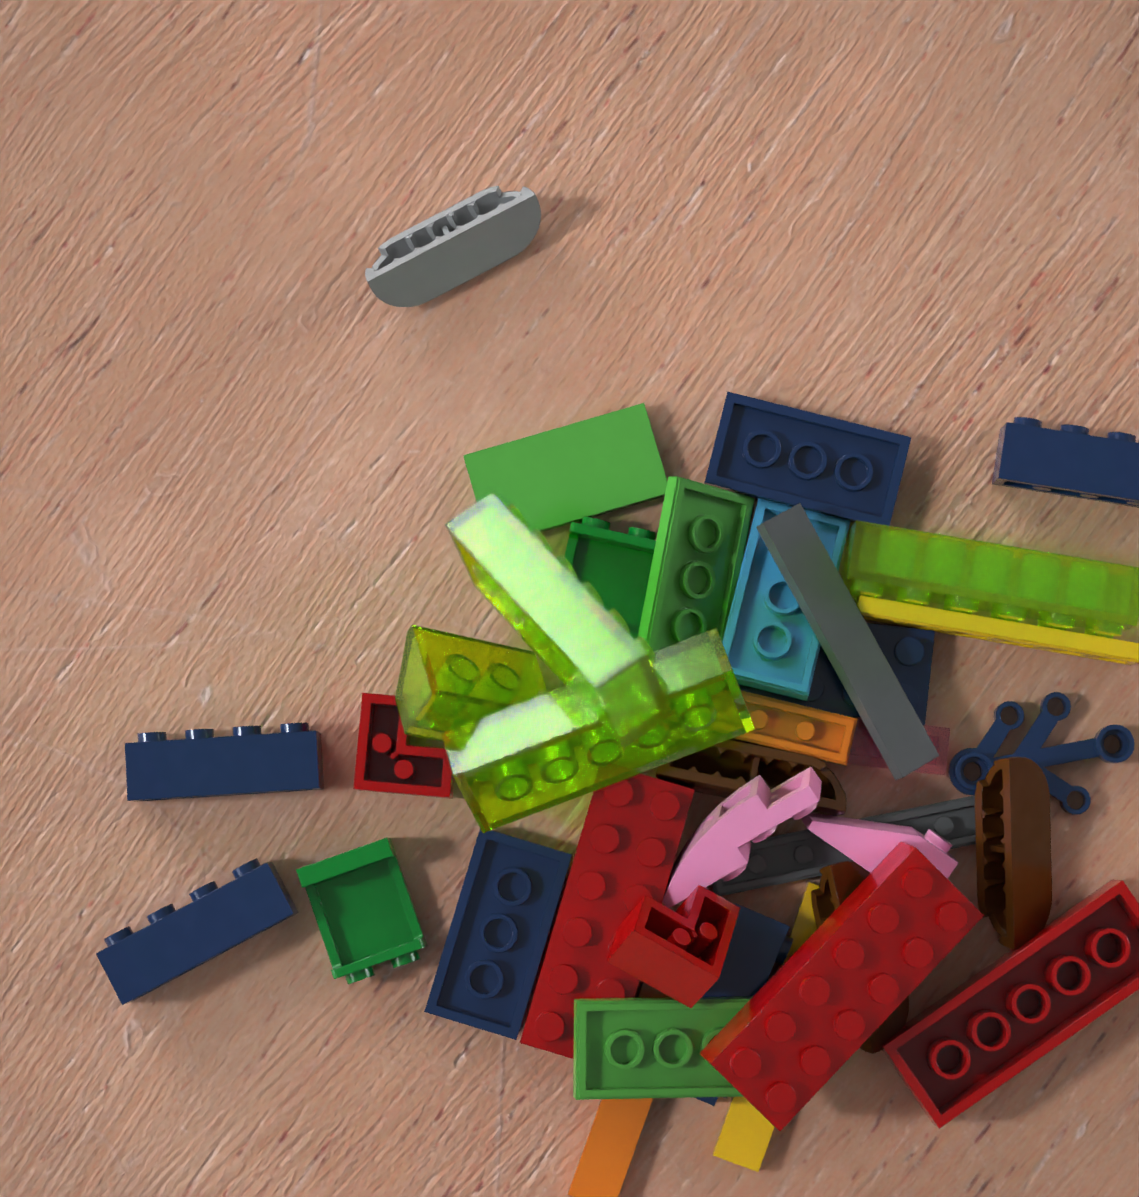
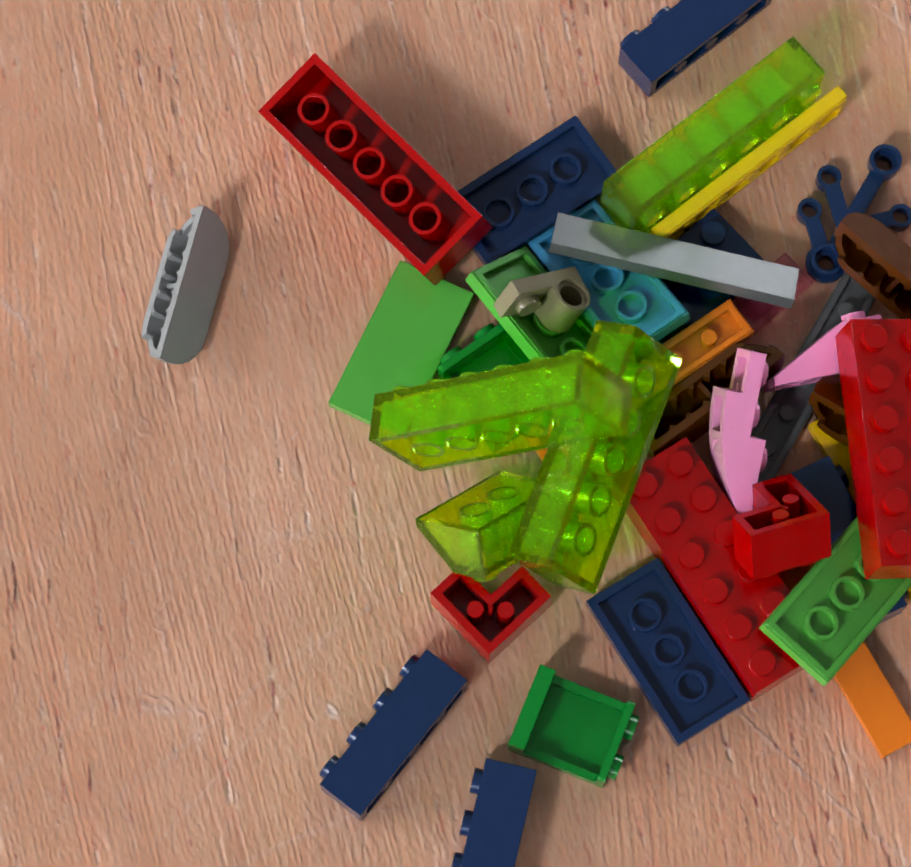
camera: 55 degrees left, 10 degrees down
(699, 310) = (375, 169): none -> red brick
(711, 560) = (554, 296): none -> dark tan plate

